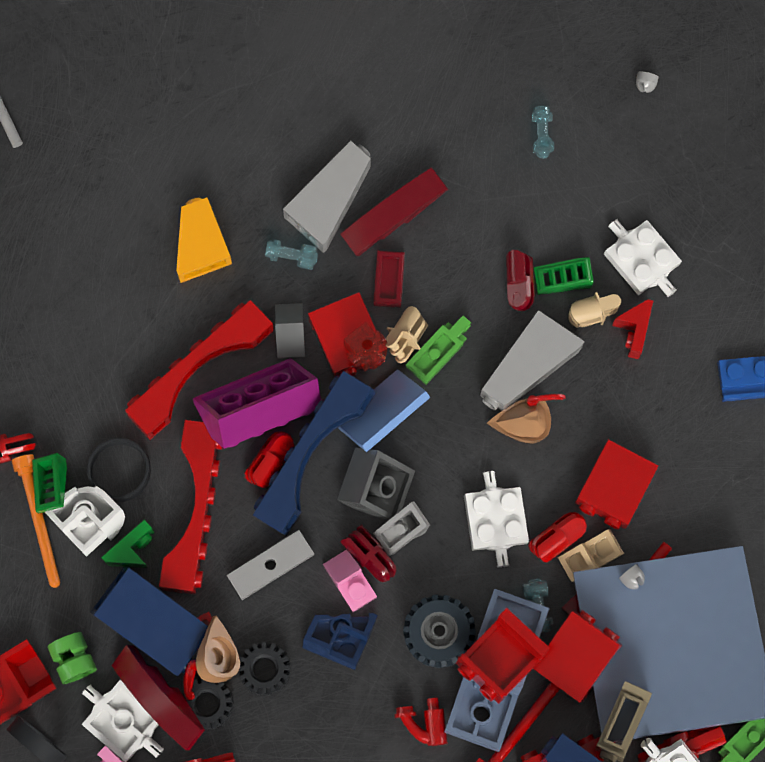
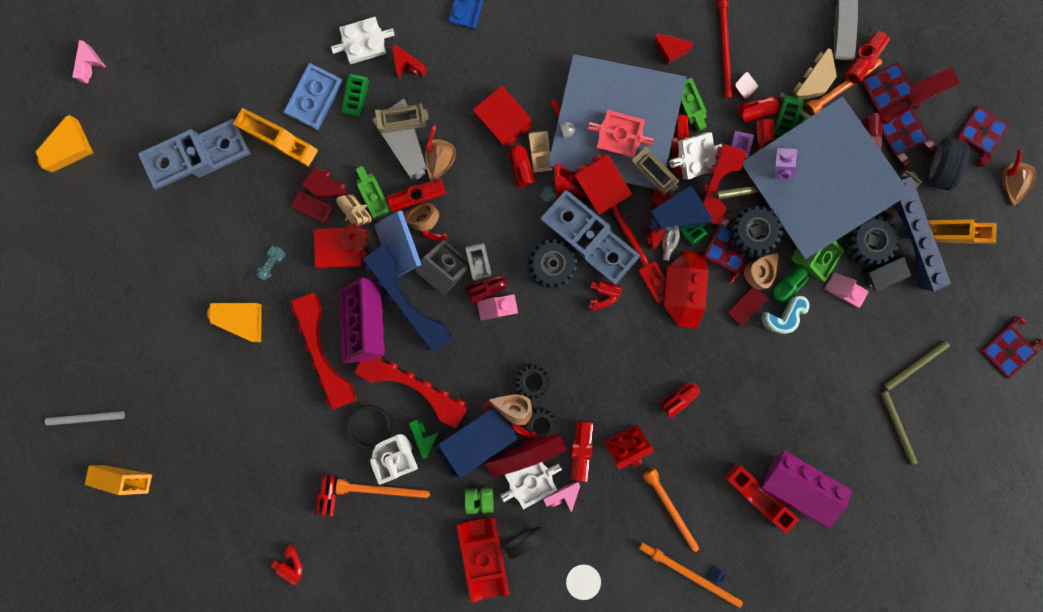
camera: 65 degrees left, 10 degrees up
(40, 468) = (349, 477): green slope -> none
(269, 459) = (400, 328): red arm -> none
(286, 555) = (467, 341): light grey tile -> none
(289, 331) = (321, 283): dark grey slope -> none
(327, 197) = (242, 226): light grey slope -> none
(339, 637) = (531, 327): dark blue slope -> none
(394, 211) = (268, 185): dark red slope -> none
(398, 101) = (194, 154): none -> sand blue bracket
(422, 282) = (322, 185): none -> dark red slope
(430, 430) = (423, 218): none -> medium nougat piece
(463, 195) = (275, 136): none -> light orange slope
(472, 423) = (428, 191): none -> red piece
(496, 519) = (494, 200): white plate -> none
(502, 656) = (586, 230): red panel -> none
(520, 280) = (347, 123): dark red arm -> none
(539, 222) = (313, 96): none -> medium blue tile
(544, 144) = (262, 70): clear light blue bar -> none
(561, 601) = (566, 181): none -> red slope
(568, 373) = (383, 127): none -> dark tan window
(593, 310) = (385, 85): tan arm -> none
(657, 654) = (620, 134): none -> coral plate

